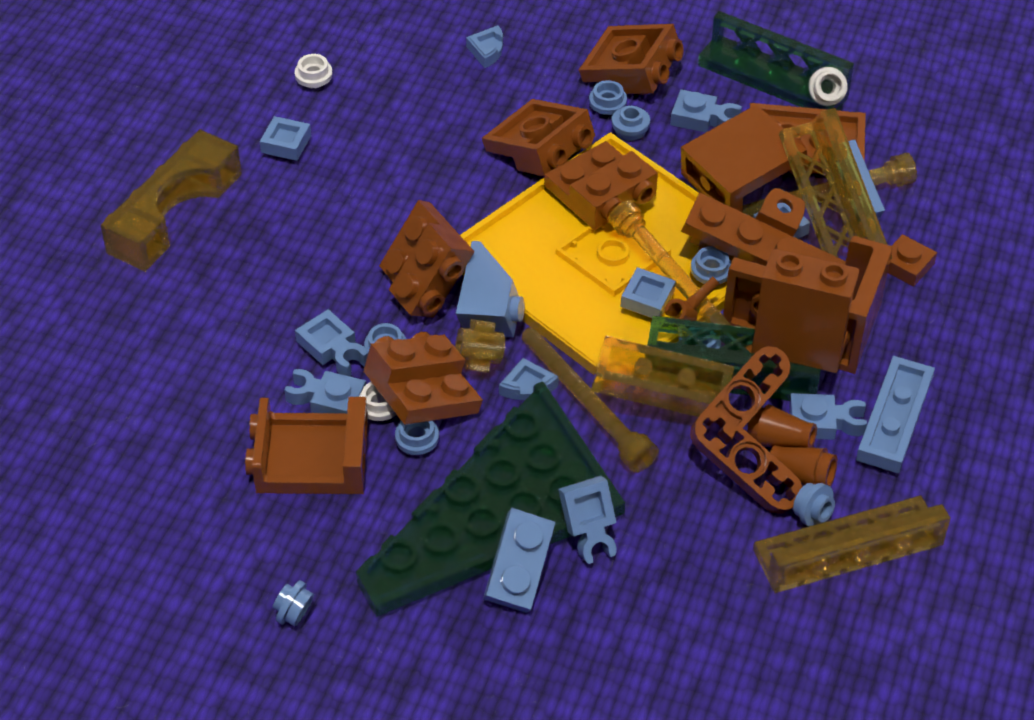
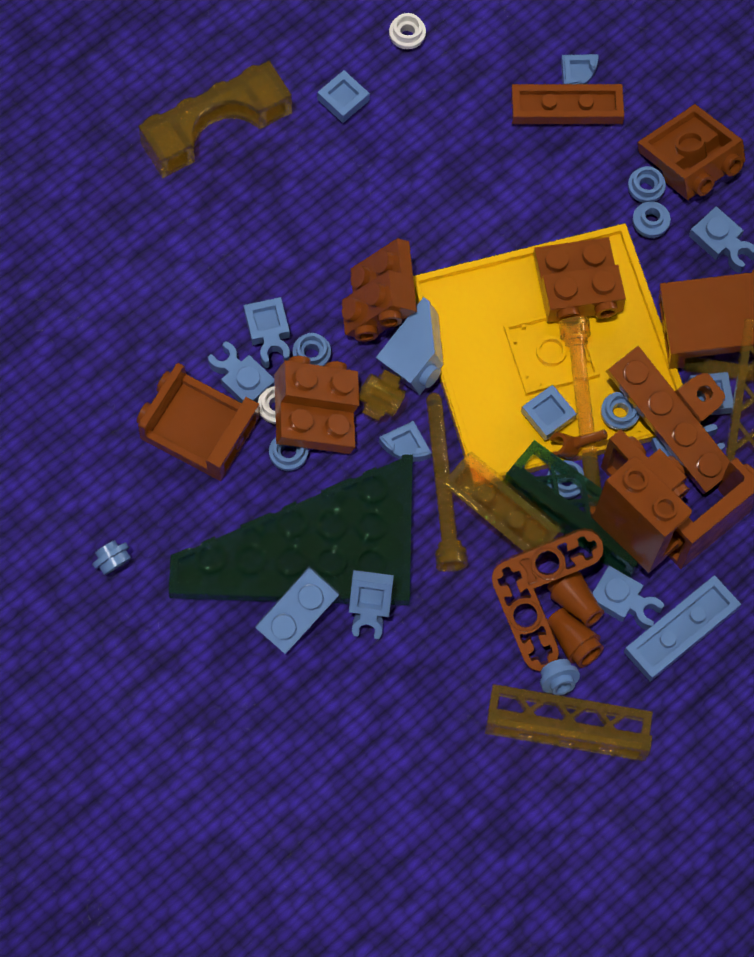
camera: 25 degrees right, 20 degrees up
(495, 68) = (567, 104): none -> dark orange plate
(541, 135) = (559, 201): dark orange plate -> none

